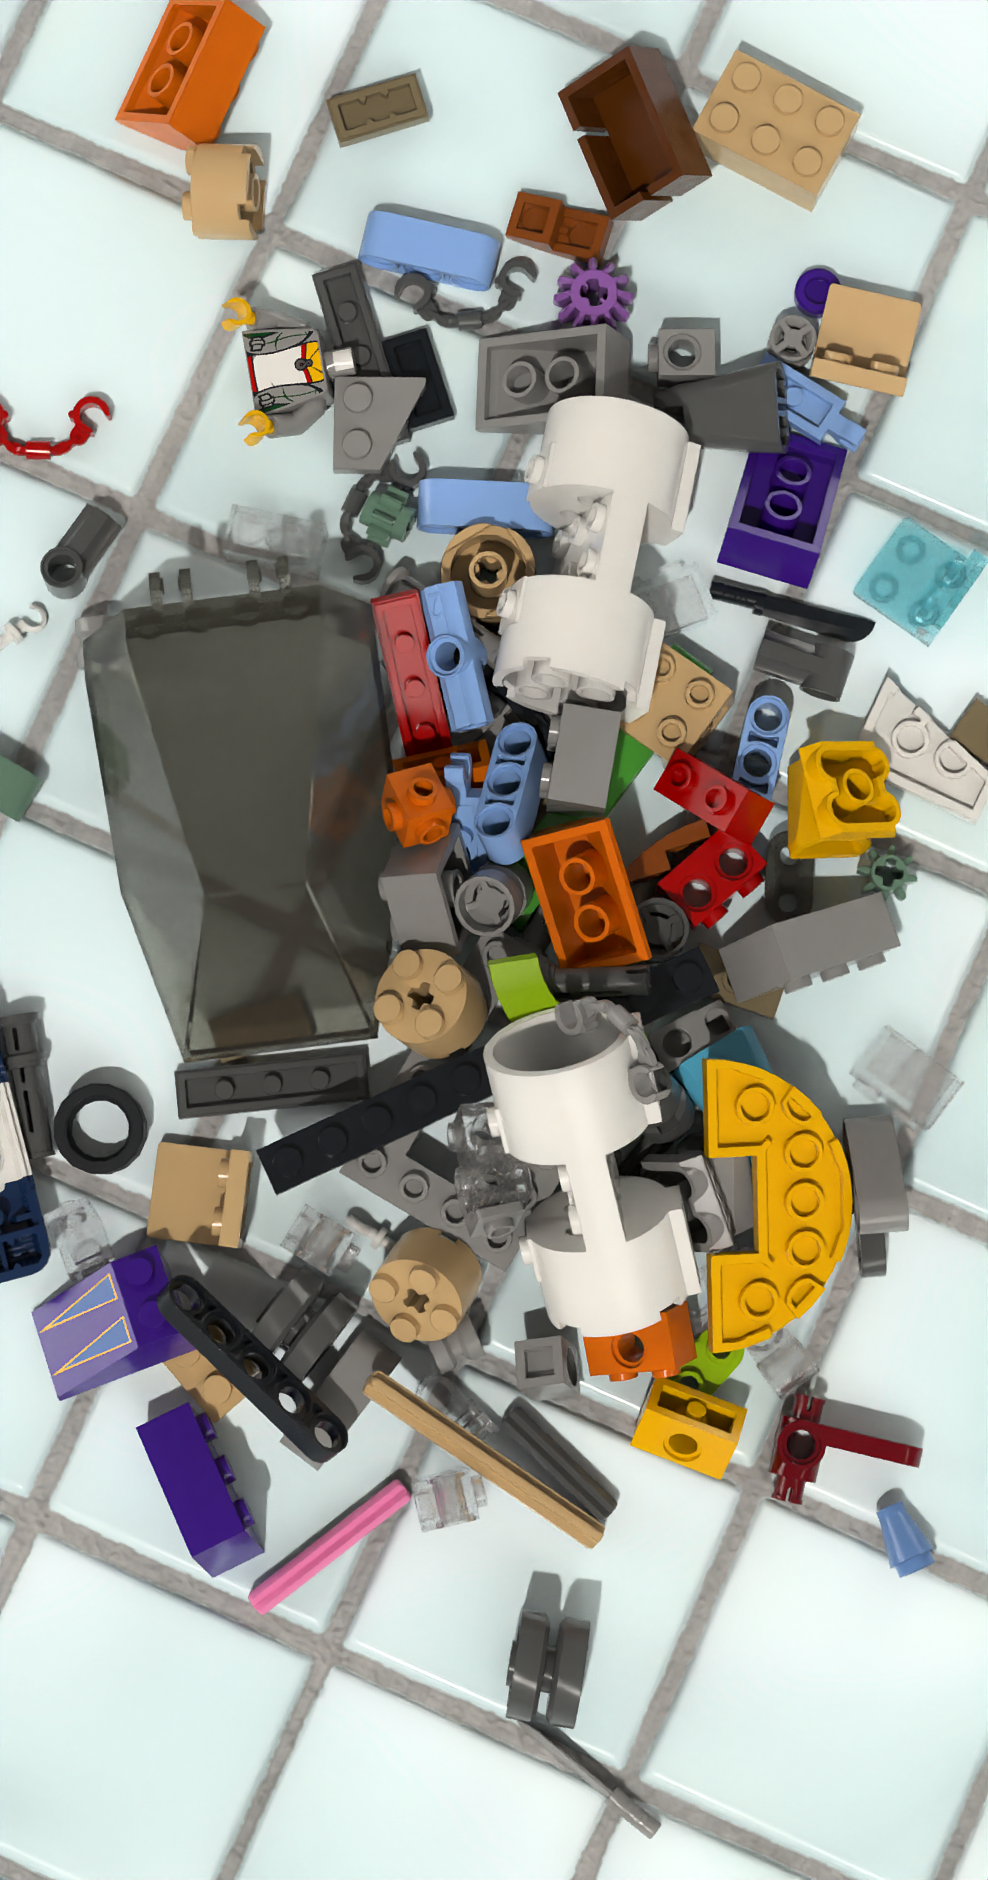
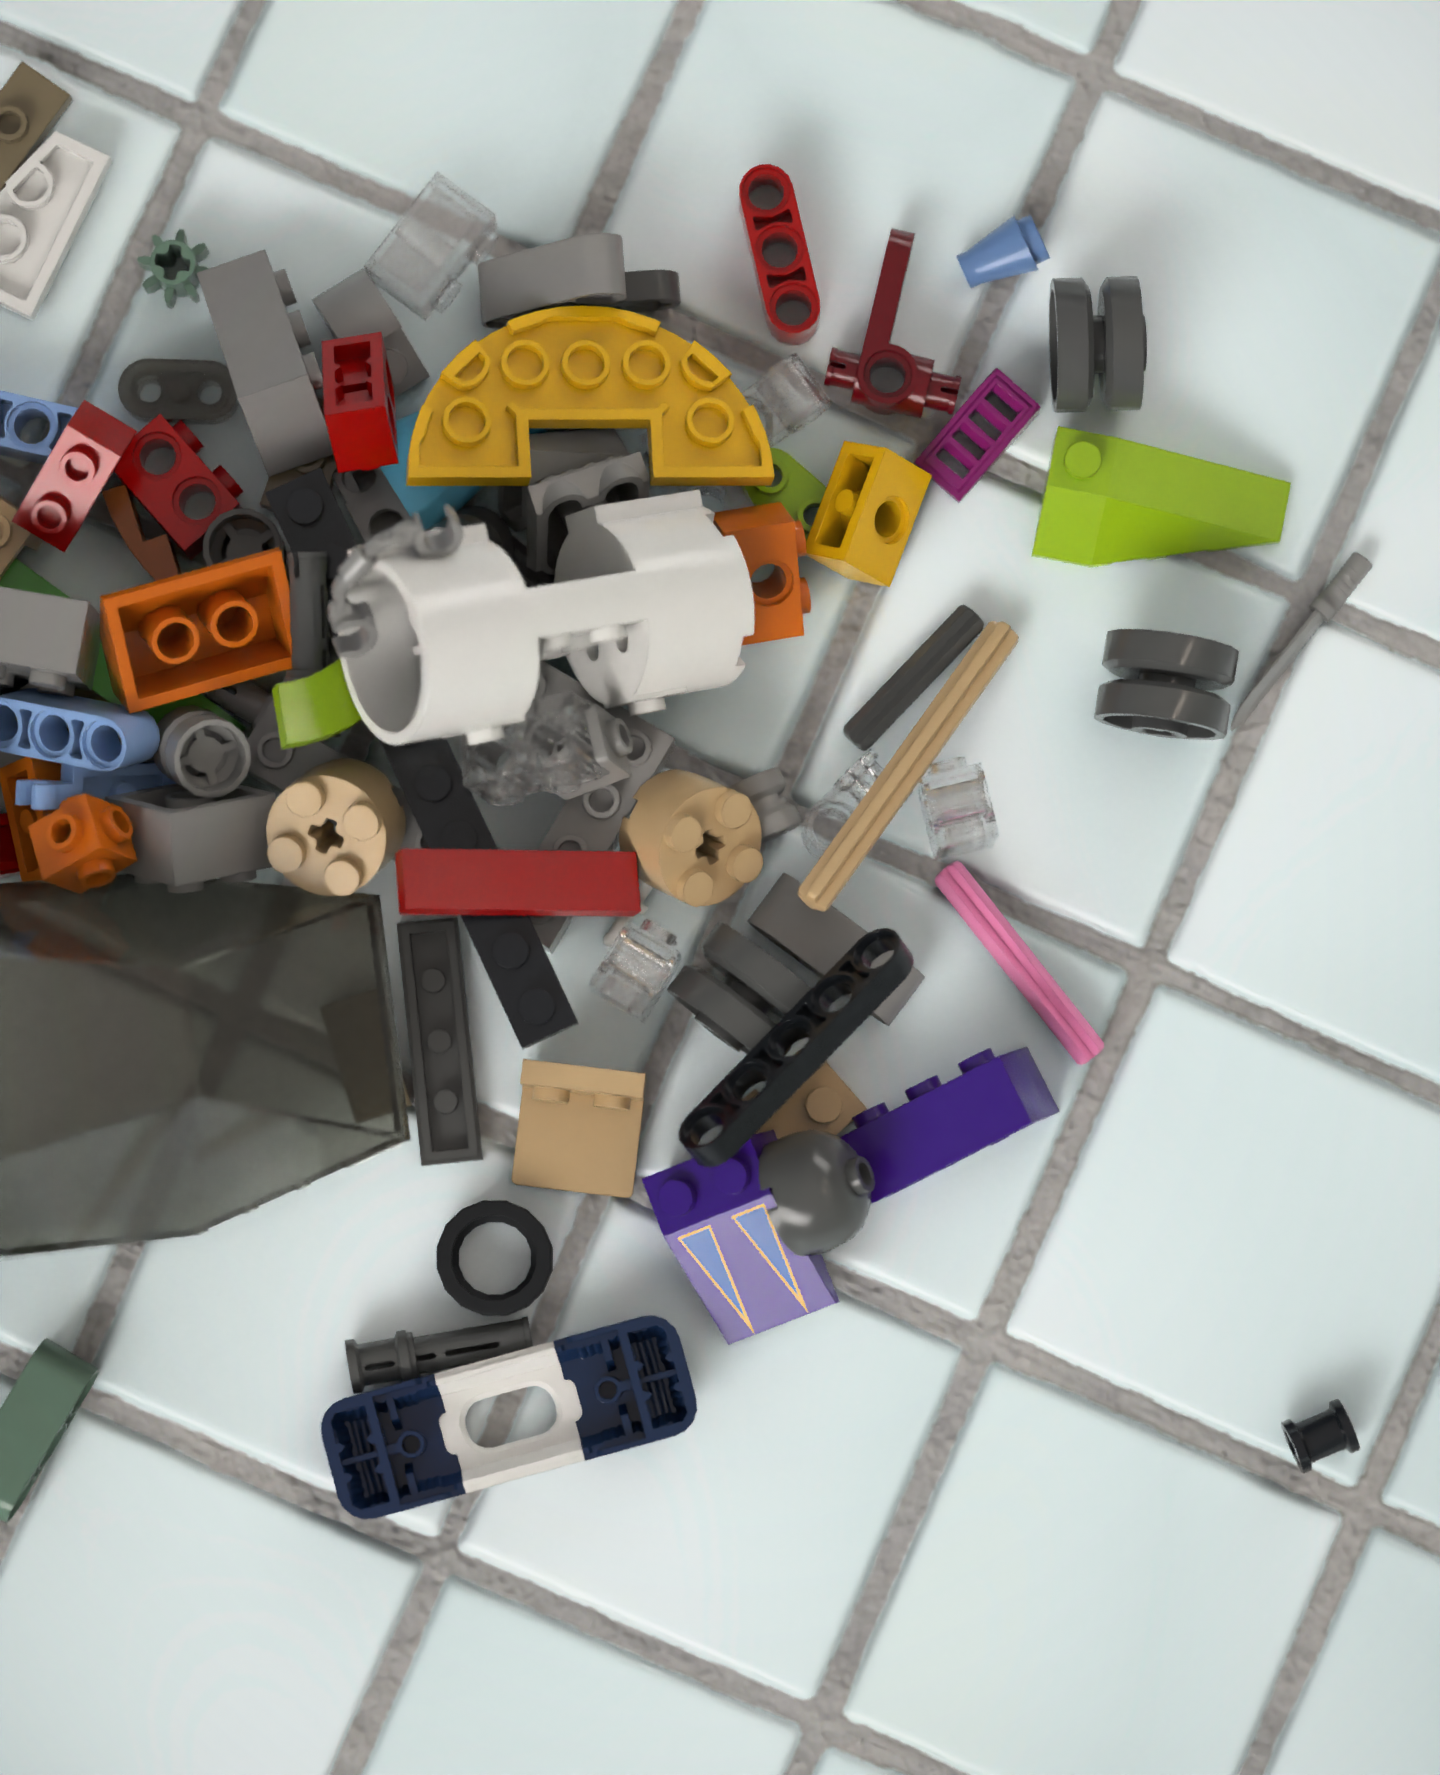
camera: 90 degrees left, 0 degrees up
(80, 1238) = (634, 1280): clear bracket -> none
(142, 1384) = (817, 1188): none -> dark grey cylinder
(384, 1147) = (517, 882): none -> red tile
(547, 1368) = (794, 688): light grey brick -> none
(699, 1645) = (1137, 501): none -> lime wedge
(772, 1021) = (359, 402): none -> red brick
(784, 1546) = (1009, 393): none -> magenta slope
(826, 1622) = (1101, 343): none -> dark grey wheel
(832, 1029) = (359, 309): none -> light grey brick
(839, 800) = (80, 324): yellow piece -> none
(924, 1363) = (774, 226): none -> red beam

